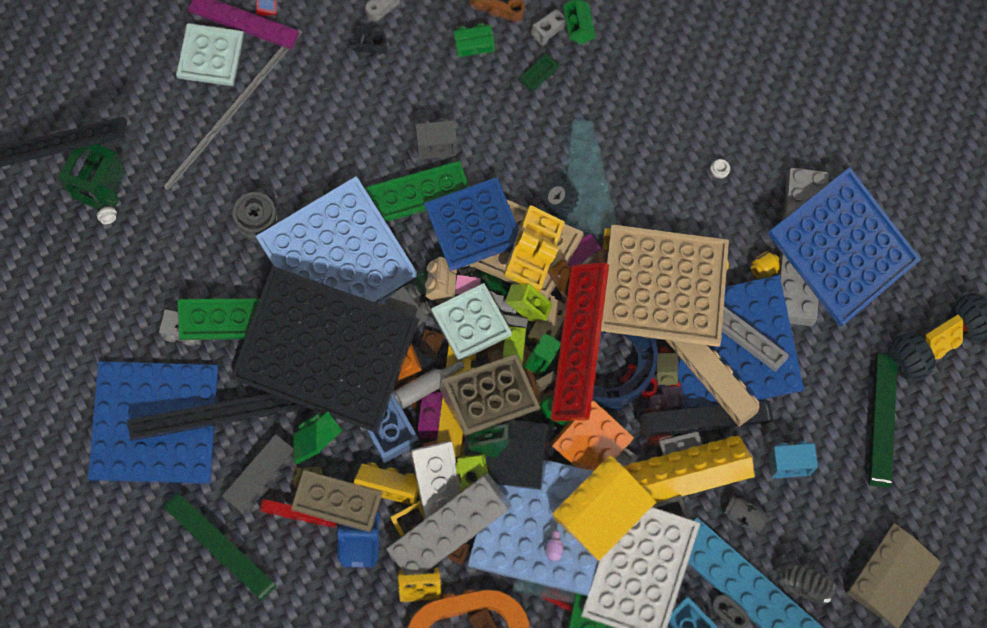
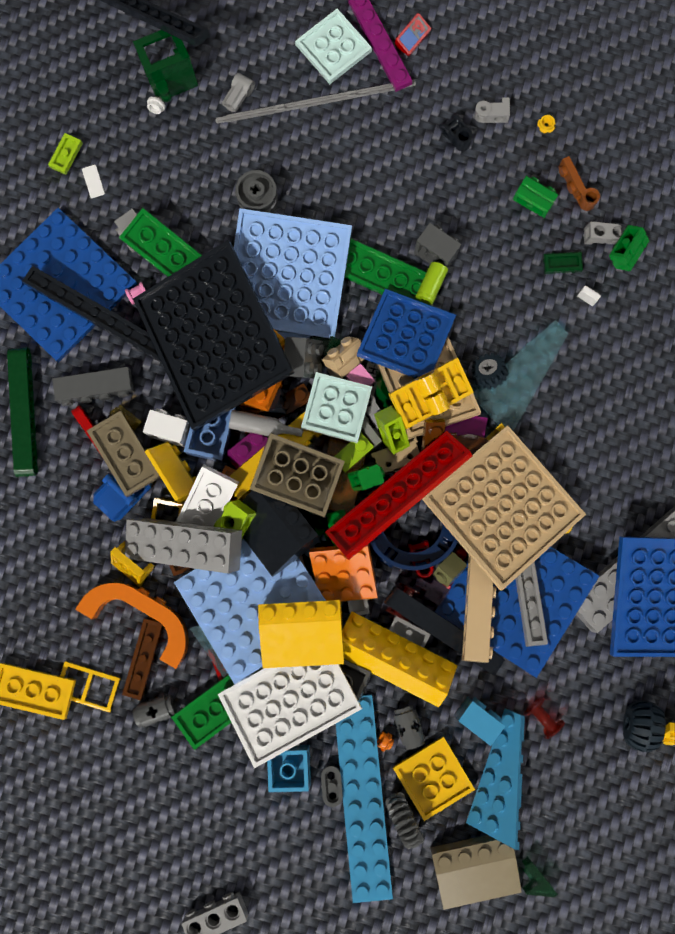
camera: 50 degrees right, 10 degrees up
(65, 314) = (65, 153): none -> lime plate
(107, 318) = (93, 181): none -> white sticker
(165, 147) = (240, 88): none -> light grey piece
(226, 373) = (132, 293): none -> bright pink bush
(314, 436) = (150, 392): green slope -> none
(352, 452) = (166, 427): none -> white brick
(456, 169) = (431, 283): none -> lime pin
(490, 440) = (265, 508): dark green slope -> none
(546, 381) = (351, 499): dark tan tile -> none
(554, 547) = (240, 628): lavender cylinder -> none
(581, 80) = (589, 295): none -> white tile
(720, 168) = (632, 452): white plate -> none
(739, 542) = (385, 741): none -> orange plate
(765, 265) = (597, 556): yellow head -> none
(799, 536) = (433, 778): none -> yellow plate
(837, 418) = (550, 726): none -> clear red piece
(853, 496) = (500, 788): none -> dark azure wing
(882, 421) = (576, 750): dark green beam -> none
(947, 541) = (538, 885): none -> clear green slope

